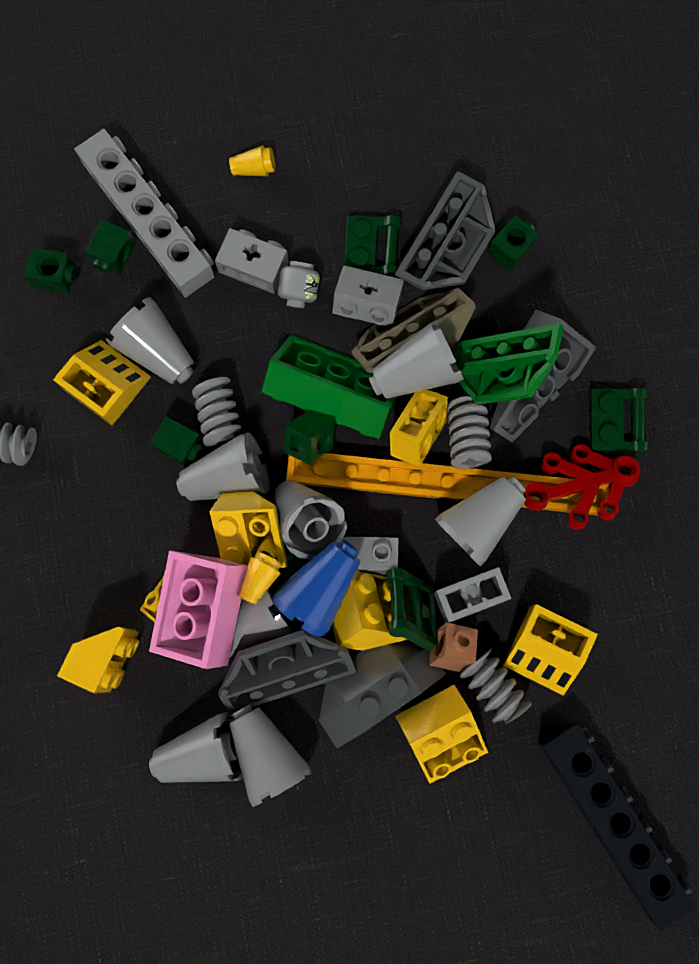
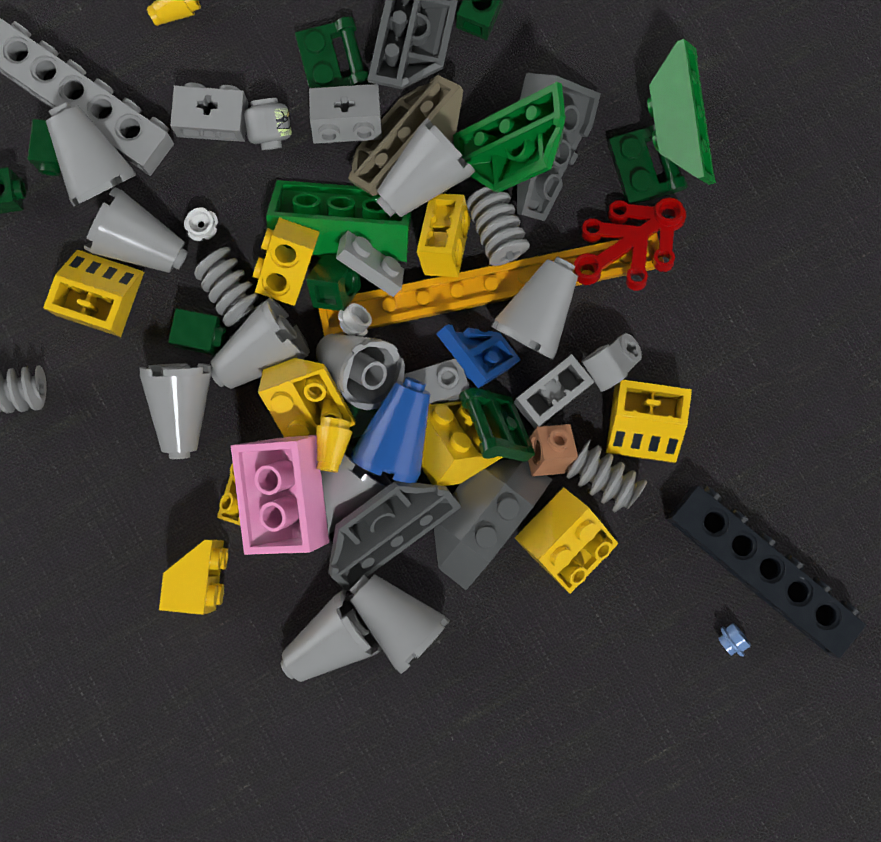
camera: 25 degrees left, 5 degrees up
(133, 262) = (84, 154): none -> light grey cone
(138, 499) = (176, 404): none -> light grey cone
(210, 344) = (201, 215): none -> white plate
(274, 406) = (285, 261): none -> yellow brick
(316, 475) = (355, 320): none -> white plate
(346, 430) = (370, 263): none -> light grey plate
(416, 540) = (479, 353): none -> blue wing
(534, 586) = (613, 362): none -> light grey piece
(567, 878) = (734, 640): none -> medium blue plate
(662, 386) = (680, 113): none -> green wedge

